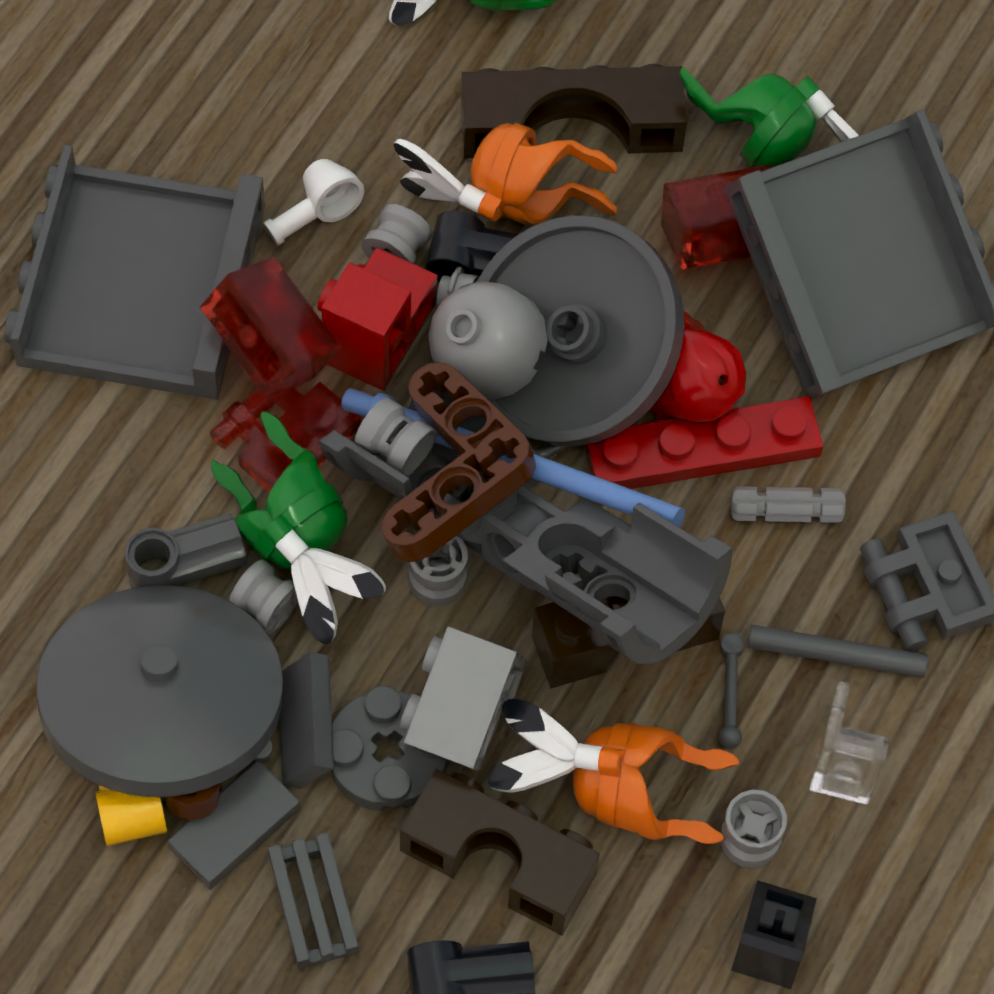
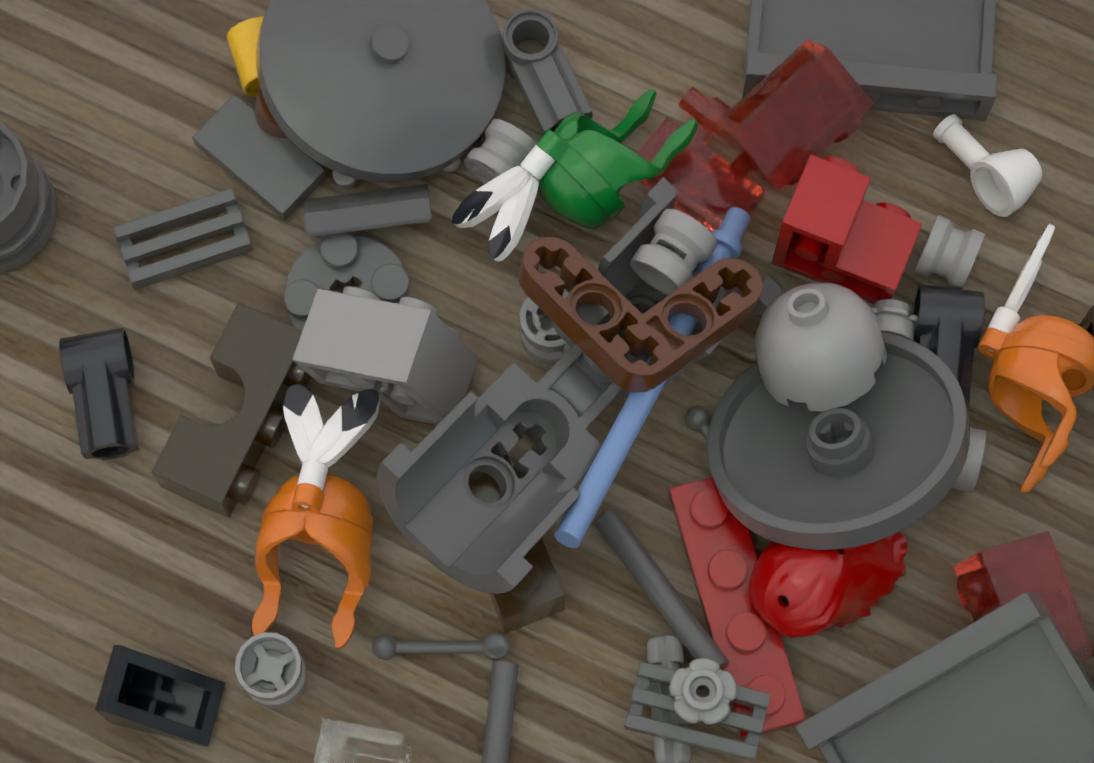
camera: 90 degrees right, 10 degrees up
(723, 481) = (659, 589): none -> dark grey bar
(797, 468) = (697, 709): none -> light grey plate
(820, 429) = (744, 696): none -> dark grey tile

